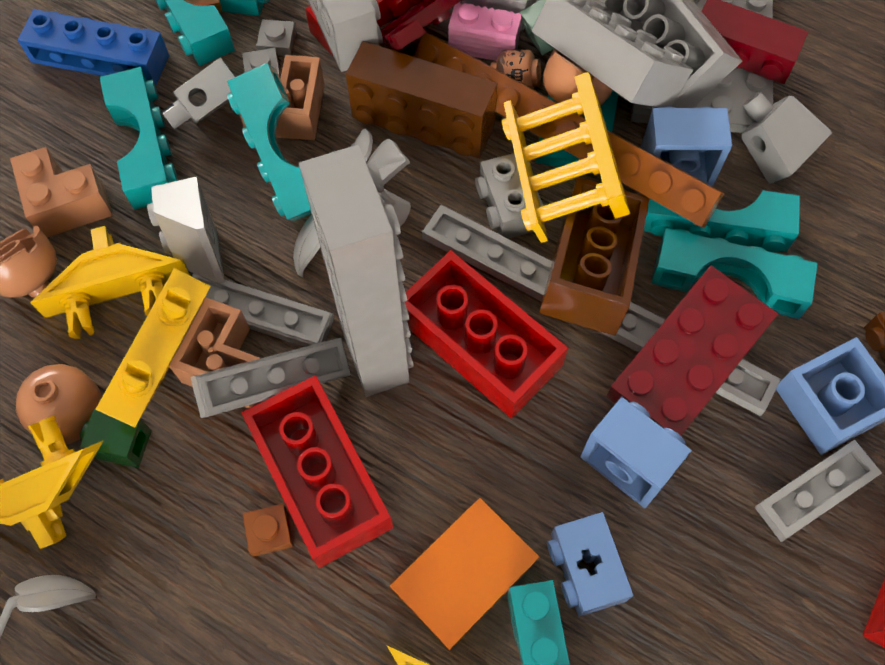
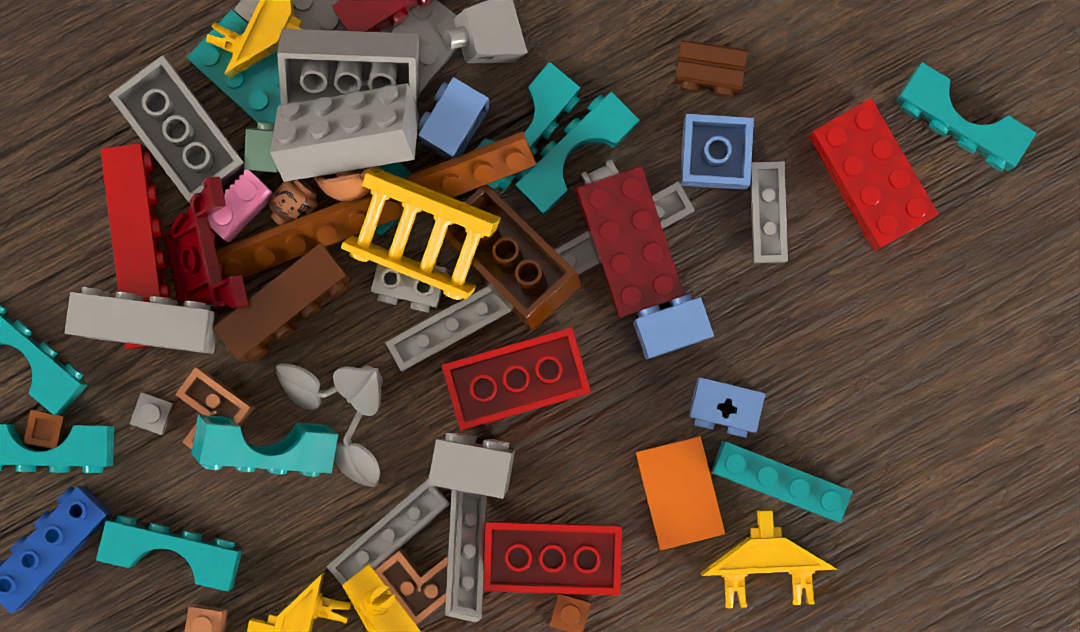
camera: 60 degrees left, 20 degrees up
(187, 227) = (298, 556): light grey slope -> none
(210, 83) = (167, 479): light grey torso -> none
(277, 35) = (126, 384): light grey plate -> none

